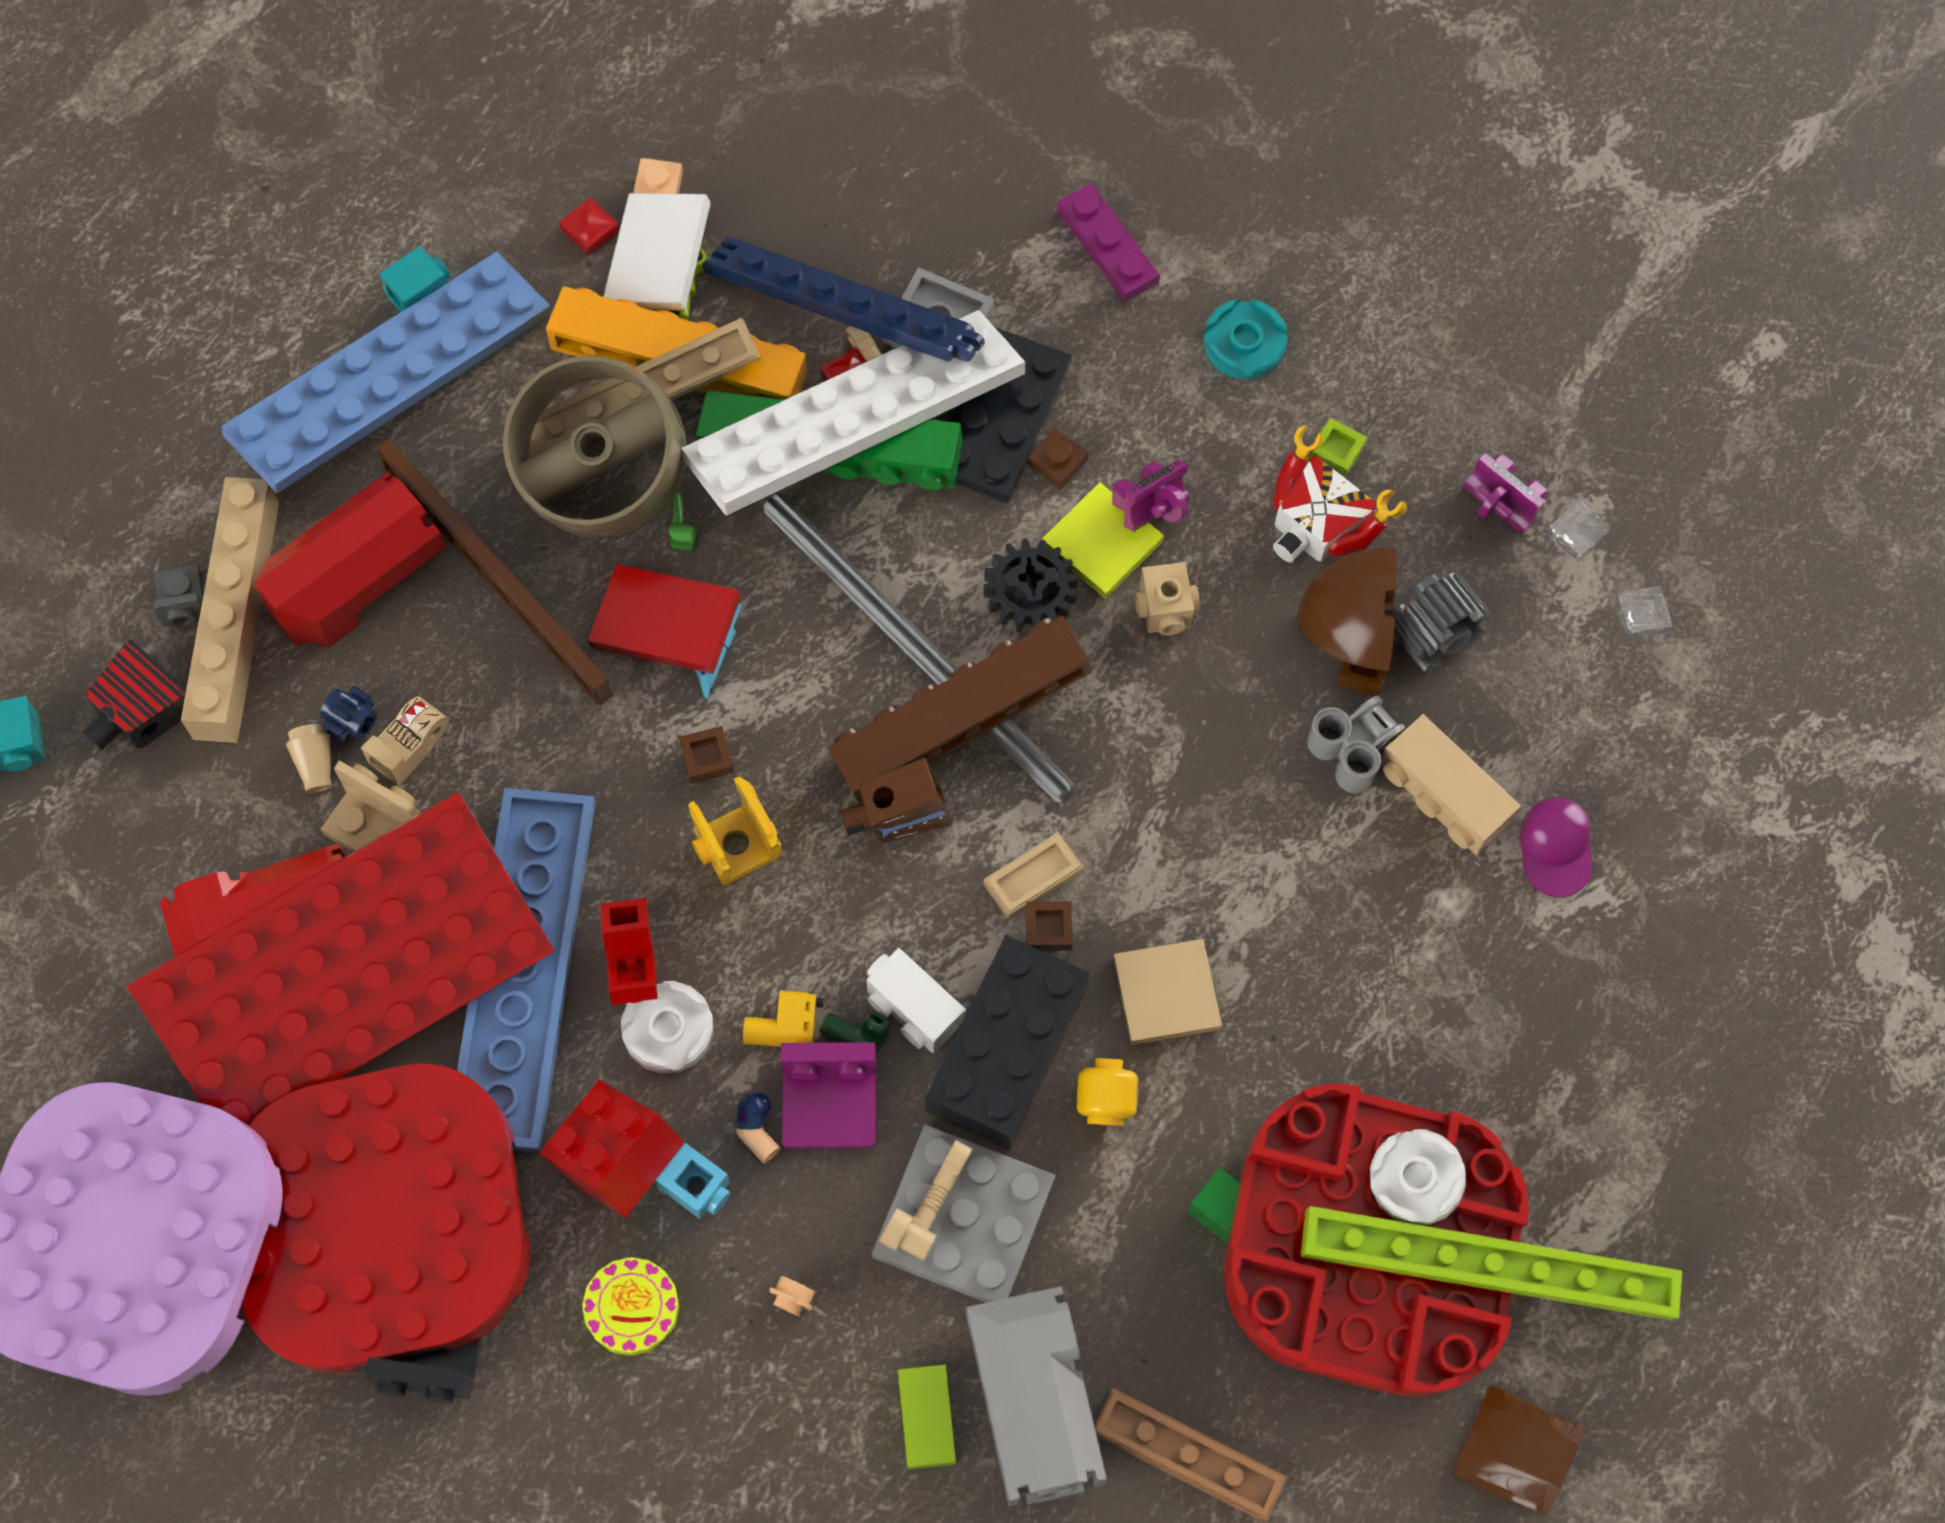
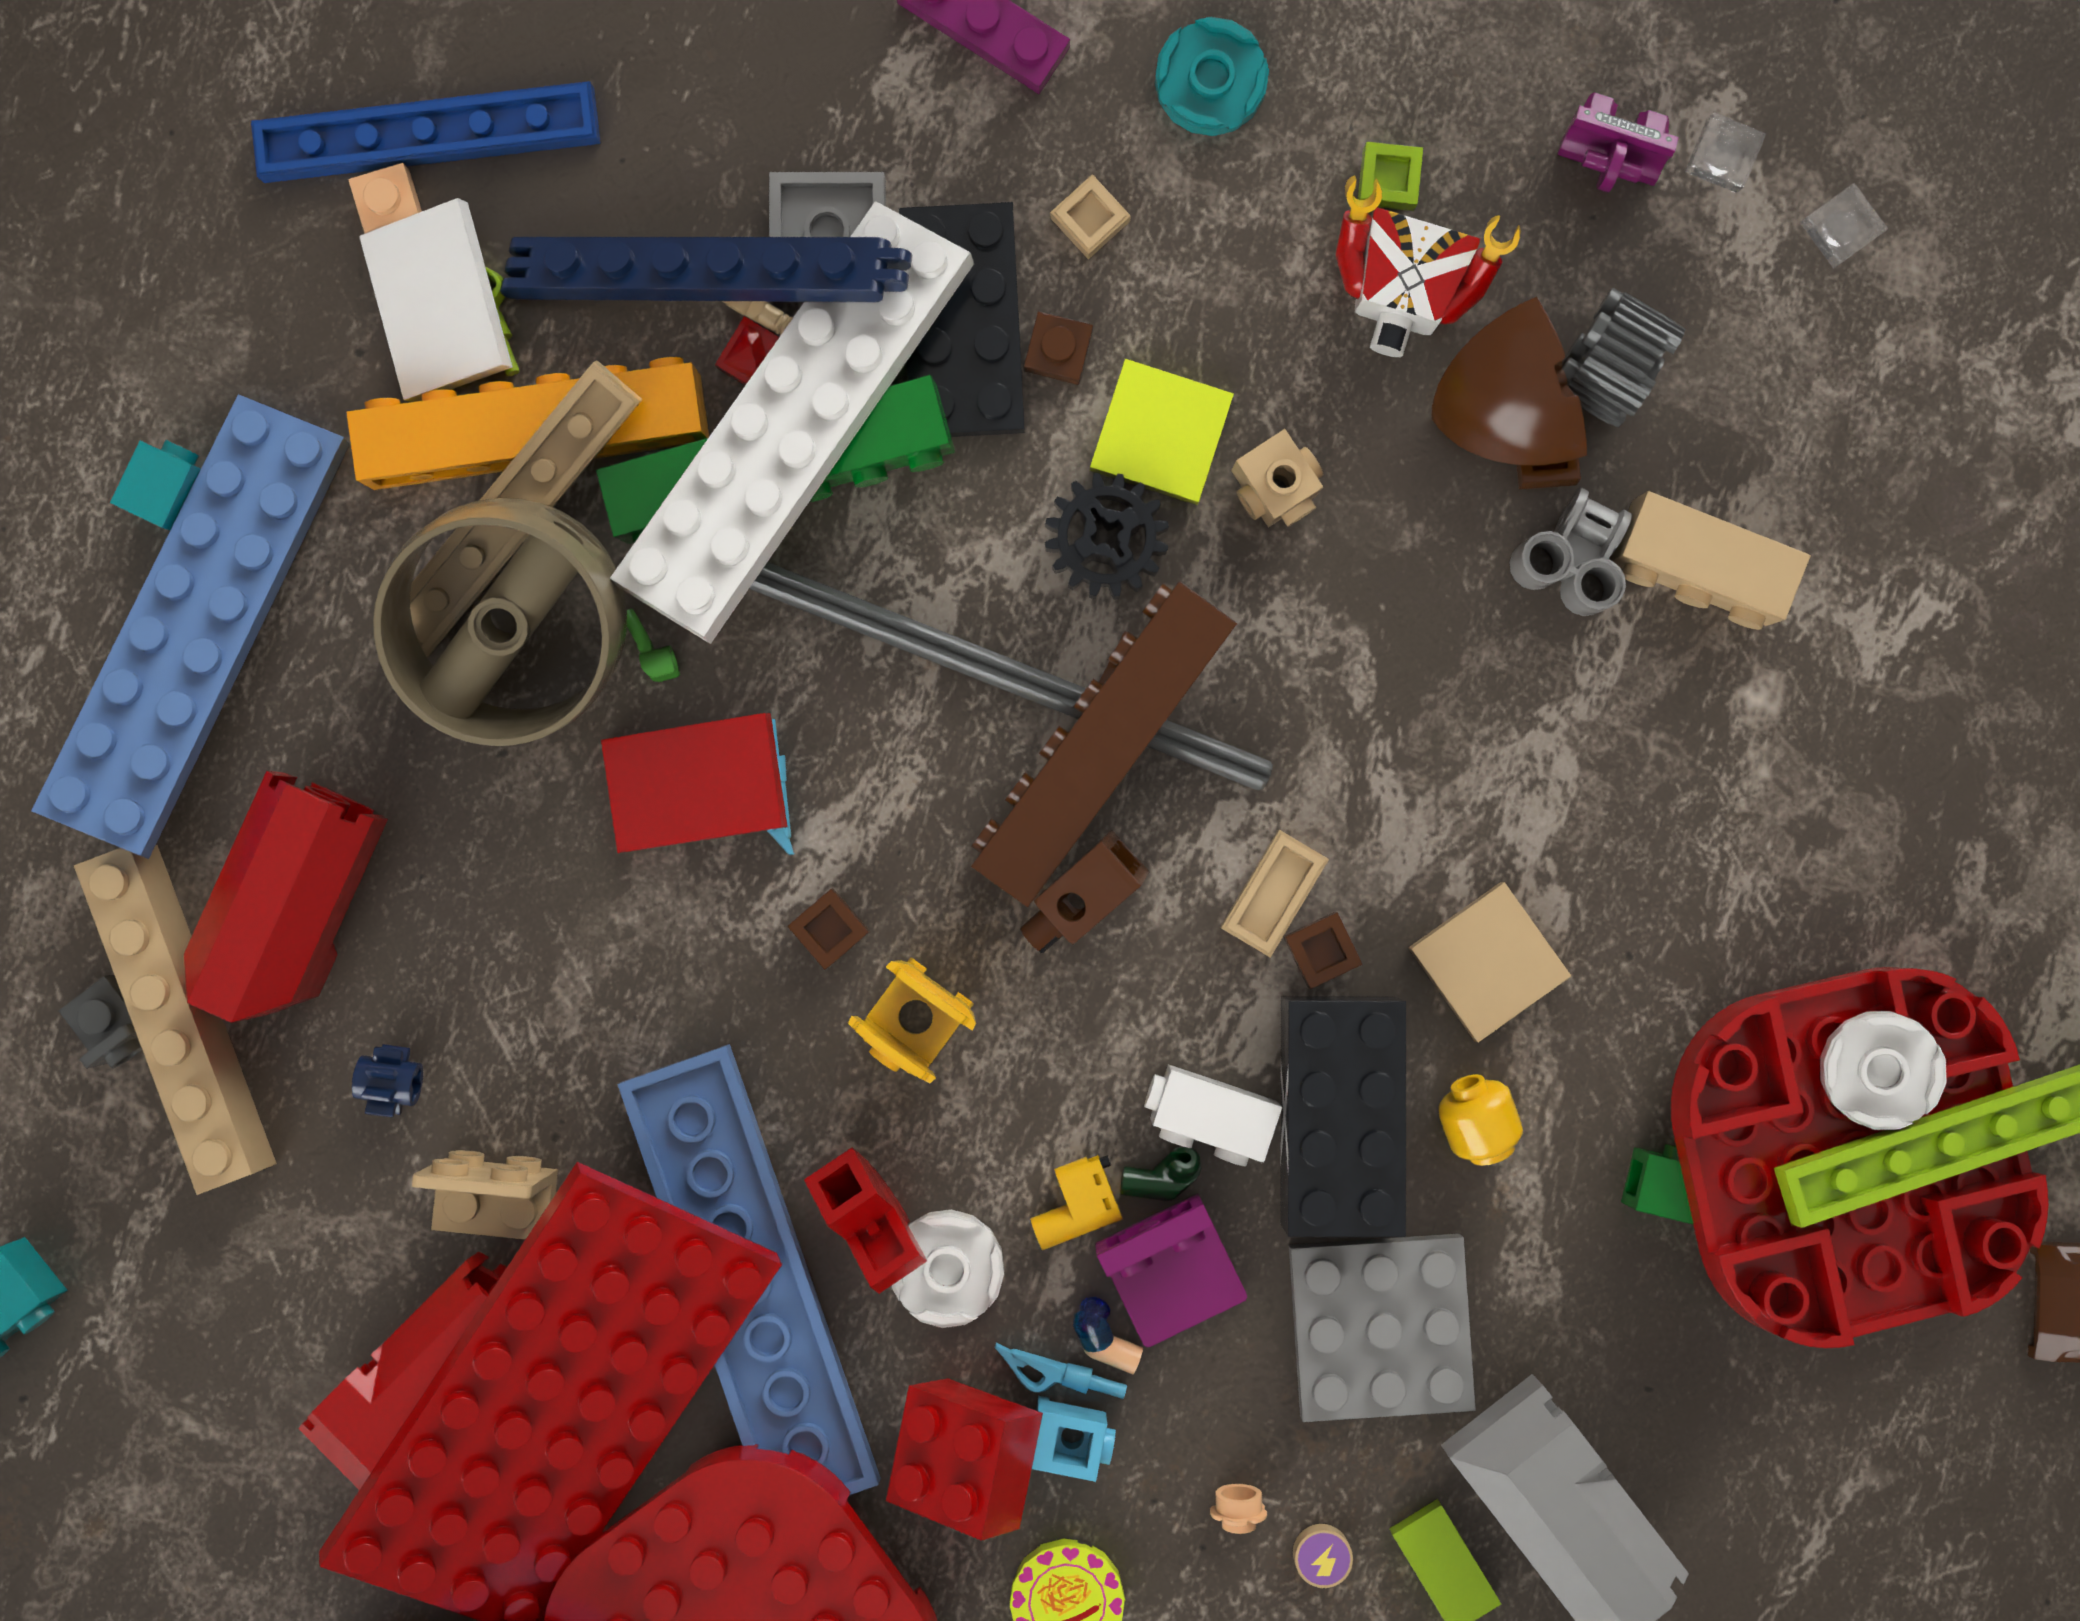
camera: 20 degrees left, 20 degrees up
(134, 699) = (124, 1180): black torso -> none
(311, 755) = (373, 1149): tan cone -> none
(406, 740) = (471, 1077): tan leg -> none
(497, 575) = (457, 819): reddish brown tile -> none
(589, 226) = (333, 303): red tile -> none
(707, 154) = (425, 132): none -> blue tile
(715, 1142) = (1069, 1374): none -> medium azure hand
(837, 1364) = (1322, 1556): none -> tile
(912, 1232) = (1344, 1391): tan brick -> none
(1120, 388) = (1090, 216): none -> tan tile
(1155, 496) = (1211, 350): magenta hips -> none
(1189, 1455) = (1744, 1473): medium nougat tile -> none
(1556, 847) = (1856, 573): magenta cap -> none

